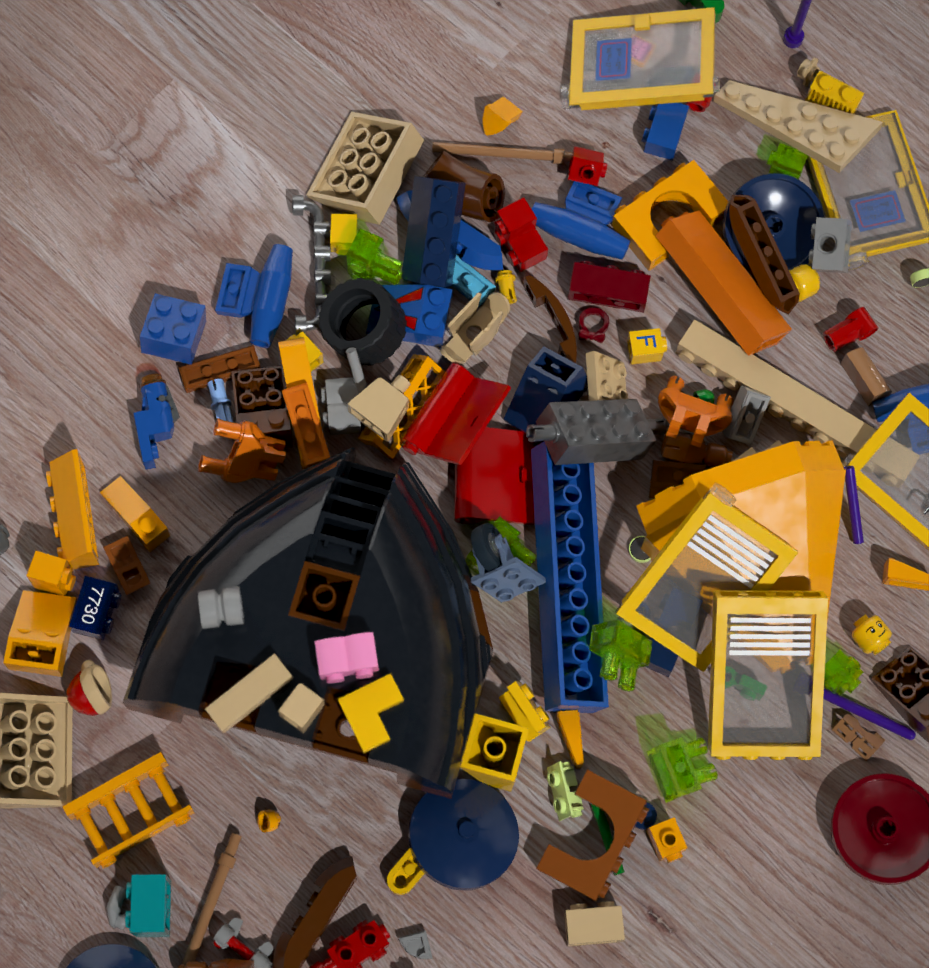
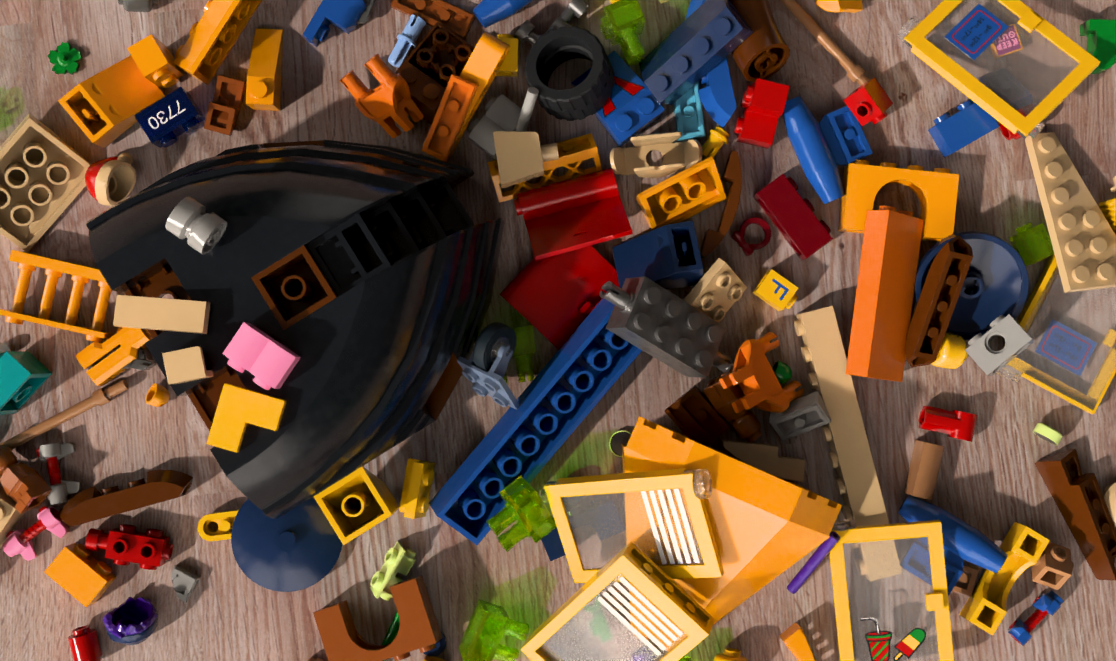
camera: 40 degrees right, 15 degrees up
(211, 813) = (116, 355): none -> light orange piece
(518, 338) = (682, 195): none -> light orange slope
(571, 731) = (434, 537): light orange slope -> none

